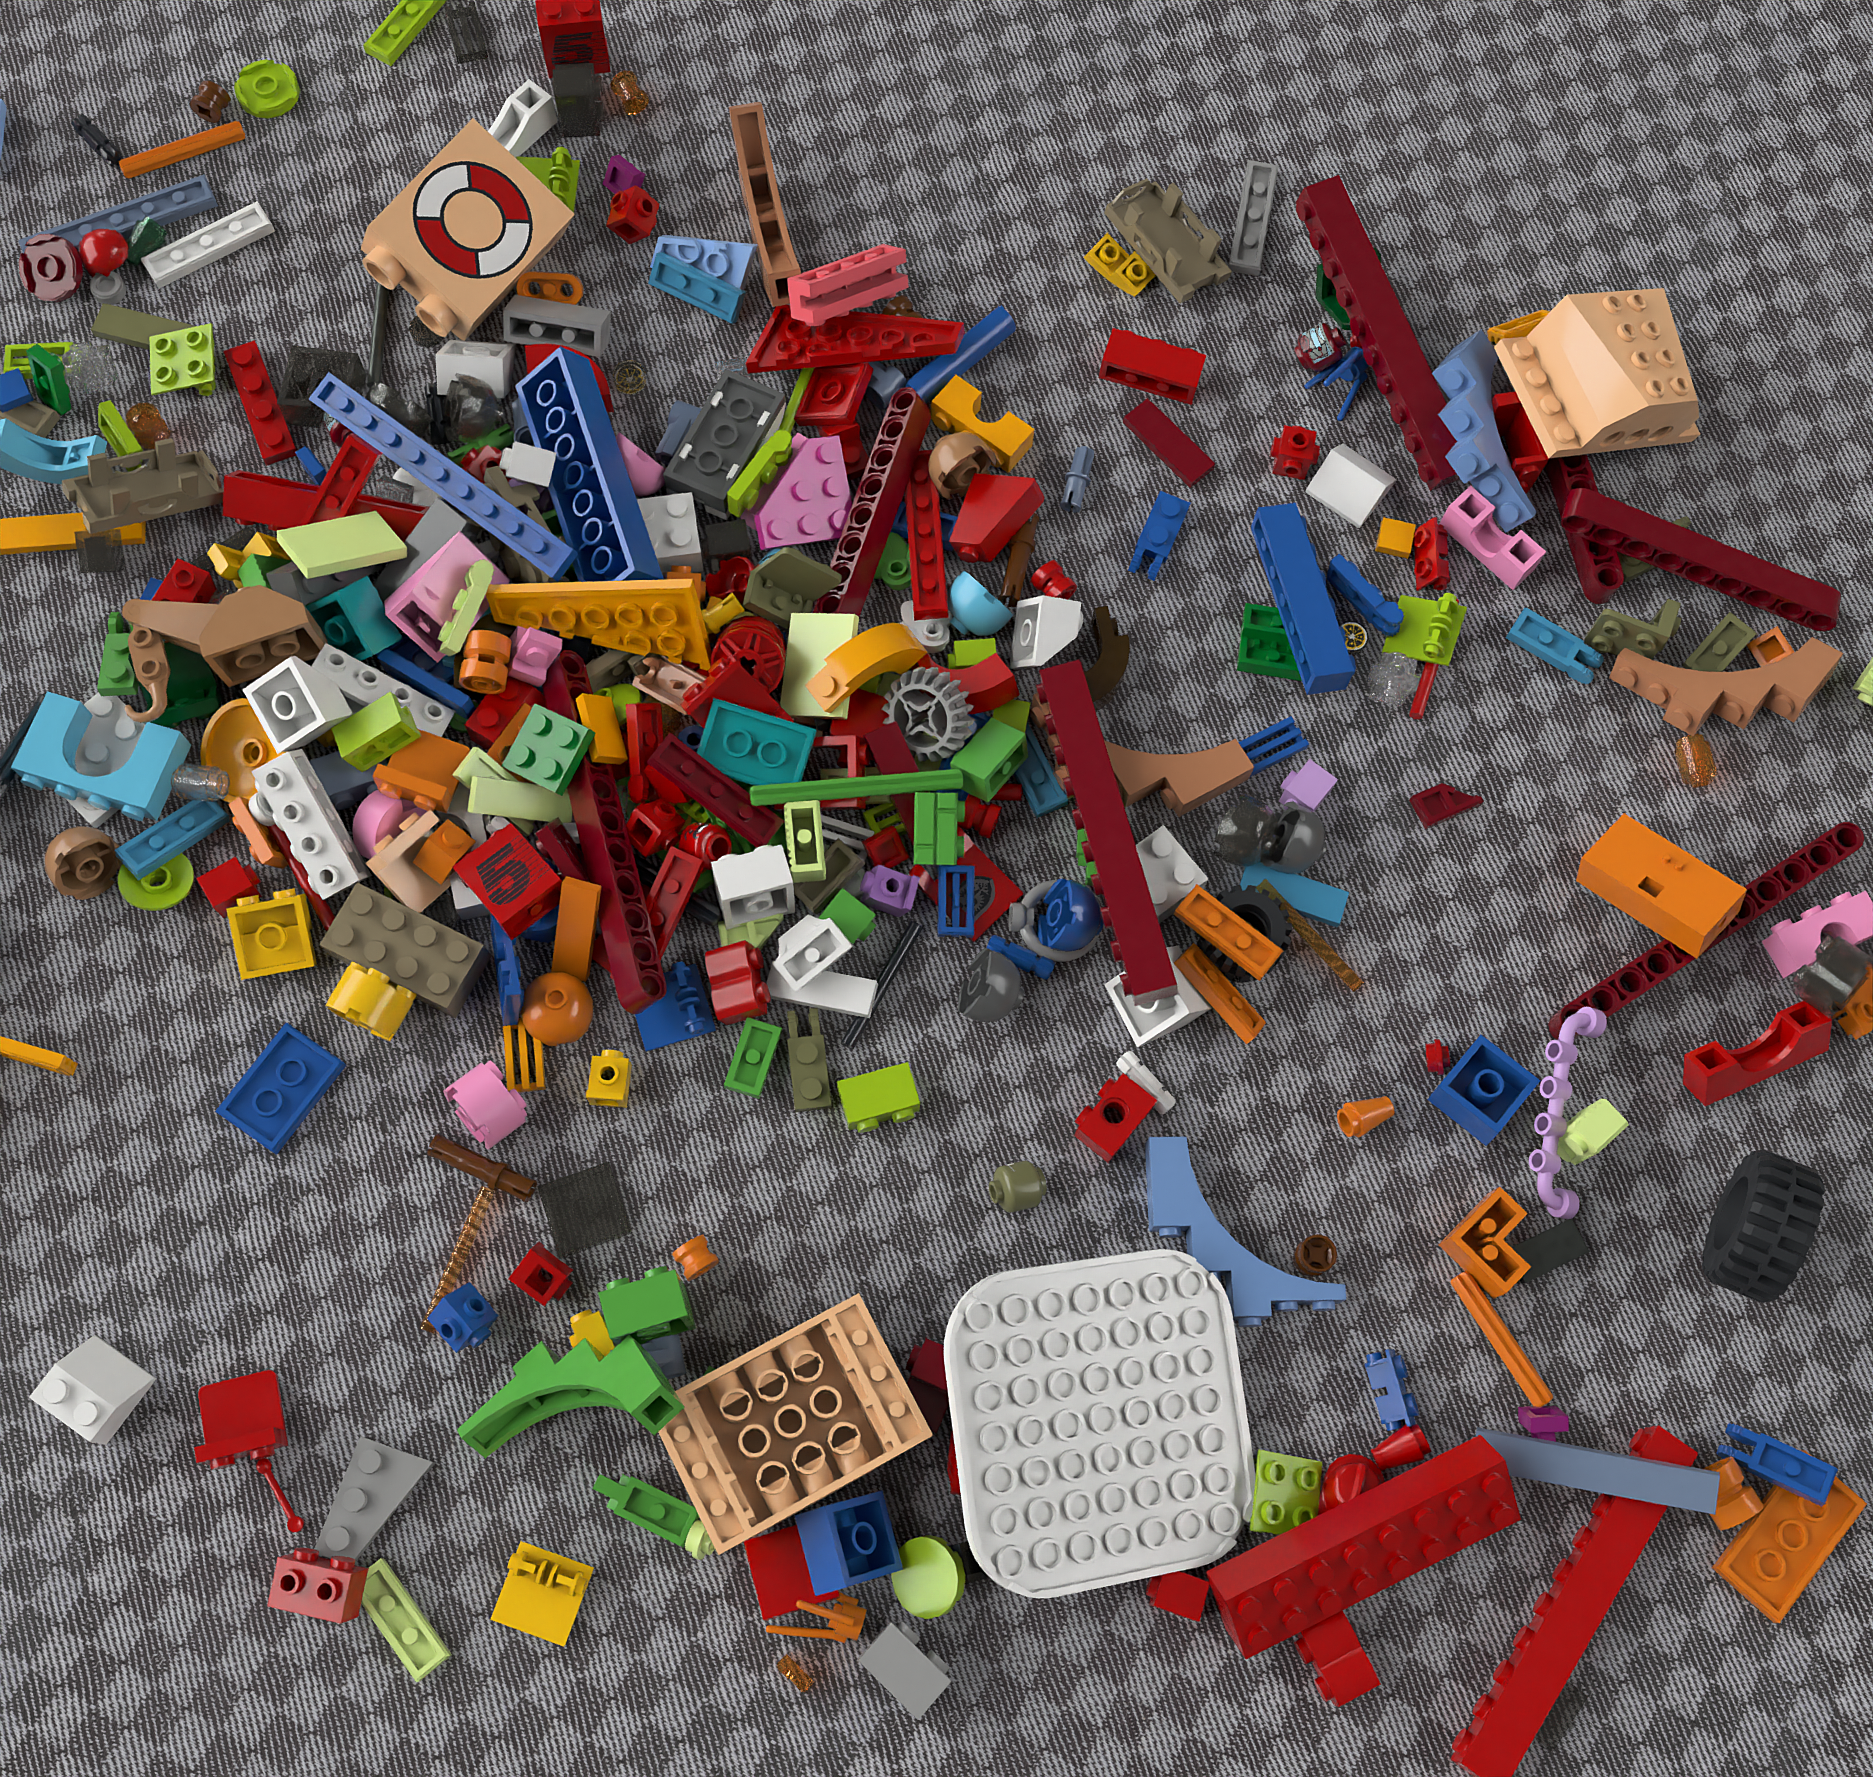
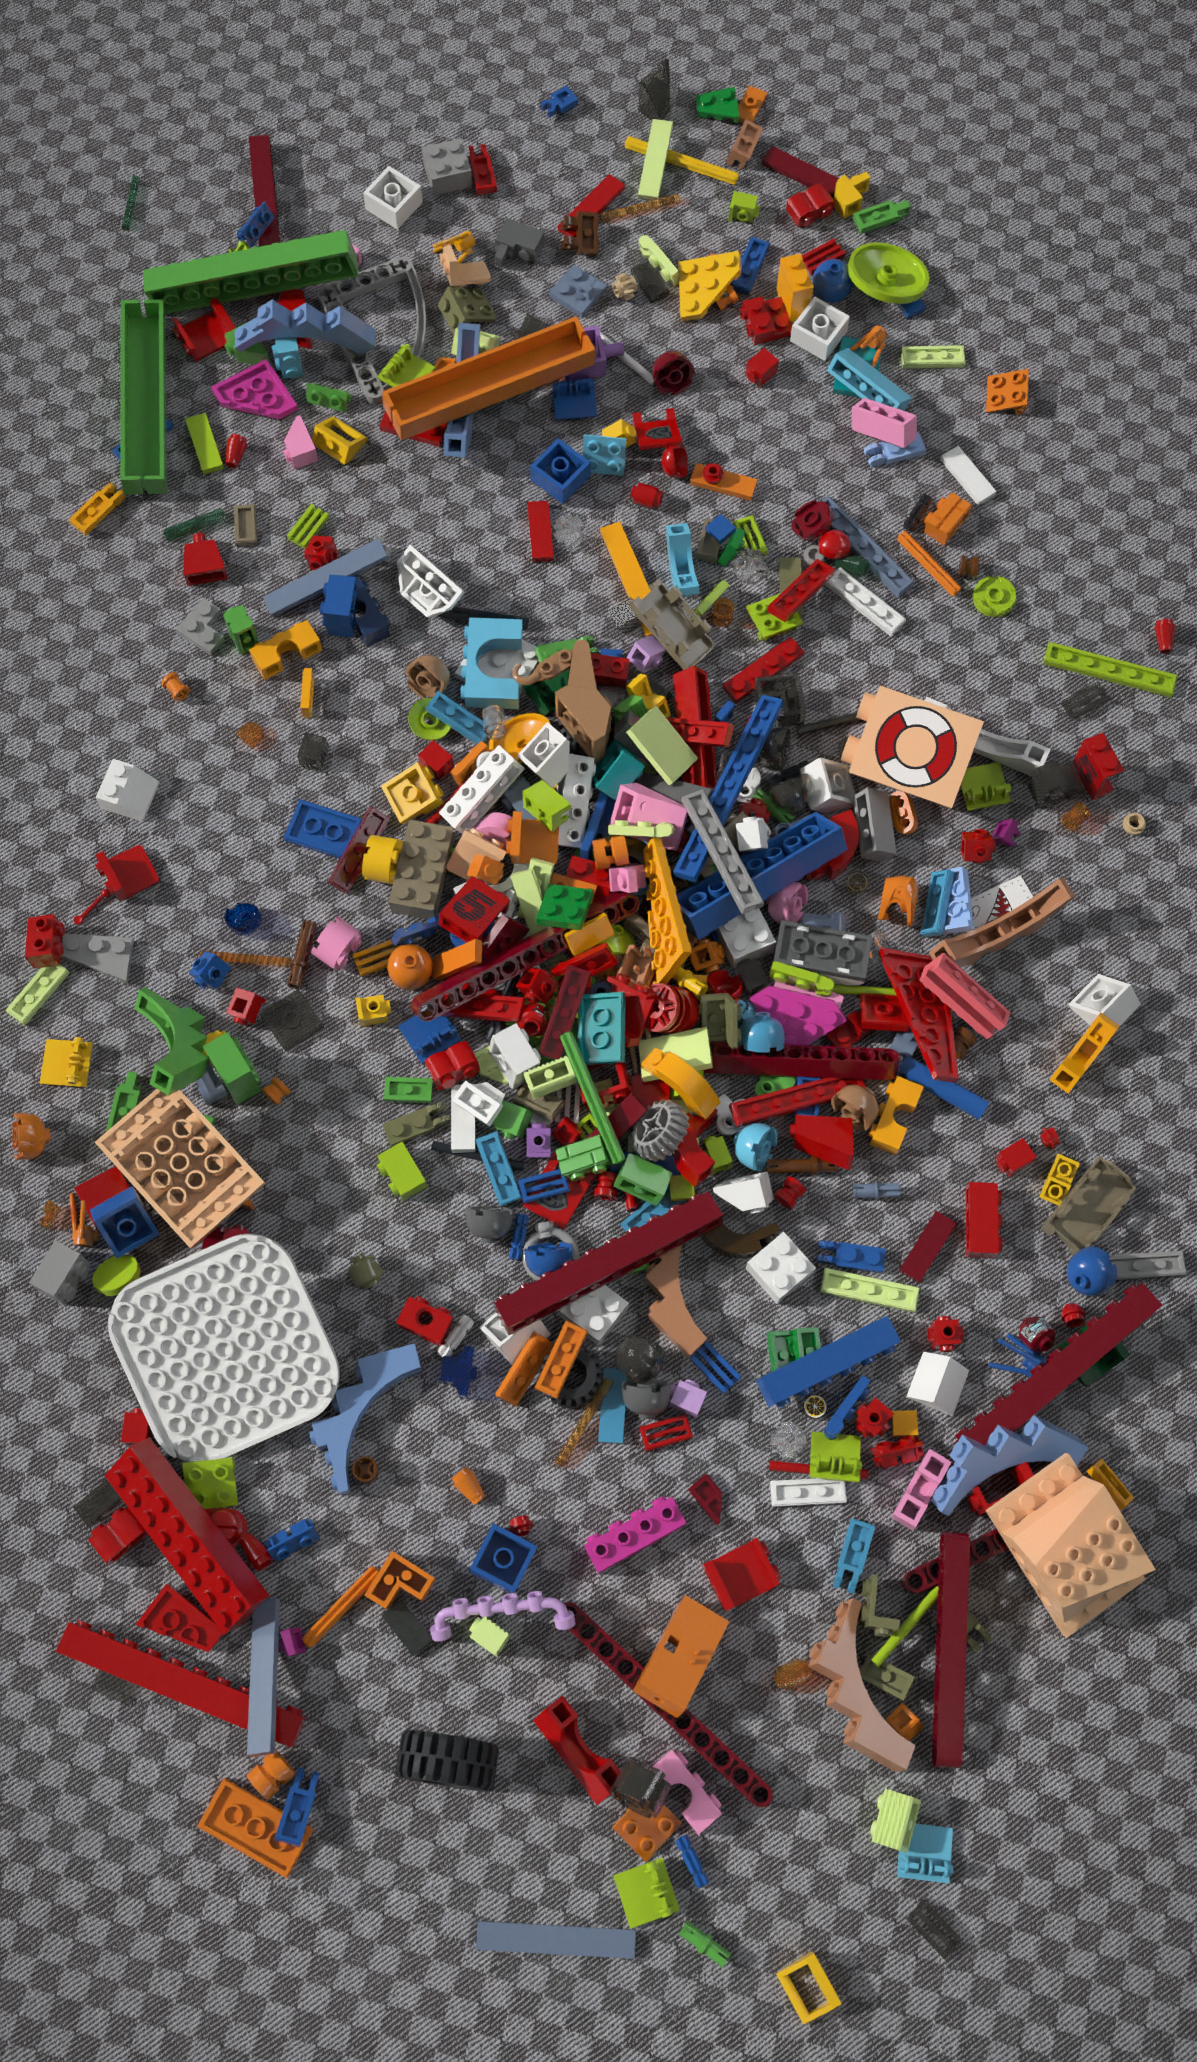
camera: 80 degrees right, 0 degrees up
(66, 63) = (968, 475): none -> white tile
(69, 1165) = (250, 734): none -> clear orange tile
(124, 104) = (947, 518): none -> orange brick
(141, 1070) = (313, 751): none -> clear smoke brick
(160, 310) = (800, 590): none -> red plate
(174, 540) = (646, 653): none -> lavender brick
(336, 1040) = (352, 858): none -> dark red tile
(391, 1244) = (243, 918): none -> clear blue hair
(545, 501) = (722, 852): none -> light grey tile
(654, 1680) = (29, 1136): none -> orange cylinder
(662, 32) = (1138, 820): none -> tan plate
(670, 321) = (903, 891): none -> orange helmet
(717, 211) = (999, 901): none -> white sticker
(827, 540) = (762, 1033): none -> dark azure cylinder
(901, 139) = (1106, 996): none -> white slope
(912, 957) = (498, 1168): none -> dark azure tile
(970, 194) = (1084, 1053): none -> light orange arch
(1062, 257) = (1049, 1138): none -> red plate
(1079, 302) = (1015, 1157): none -> red brick
(1157, 623) = (780, 1267): none -> white brick
(1200, 1086) = (459, 1371): none -> clear blue brick
(1208, 529) = (869, 1290): none -> yellowish green tile
(1257, 258) = (1091, 1271): none -> blue cylinder
(1276, 1684) = (97, 1503): none -> clear smoke tile
(1300, 302) = (1073, 1315): none -> red plate
(1345, 860) = (645, 1438): none -> red tile
(1387, 567) = (879, 1413): none -> red brick
(1461, 682) = (807, 1492): none -> white tile
(1478, 909) = (635, 1534): none -> dark pink brick
(1478, 1584) = (180, 1619): none -> red wing
(1553, 788) = (742, 1574): none -> red panel
(1657, 600) = (906, 1627): none -> lime bar

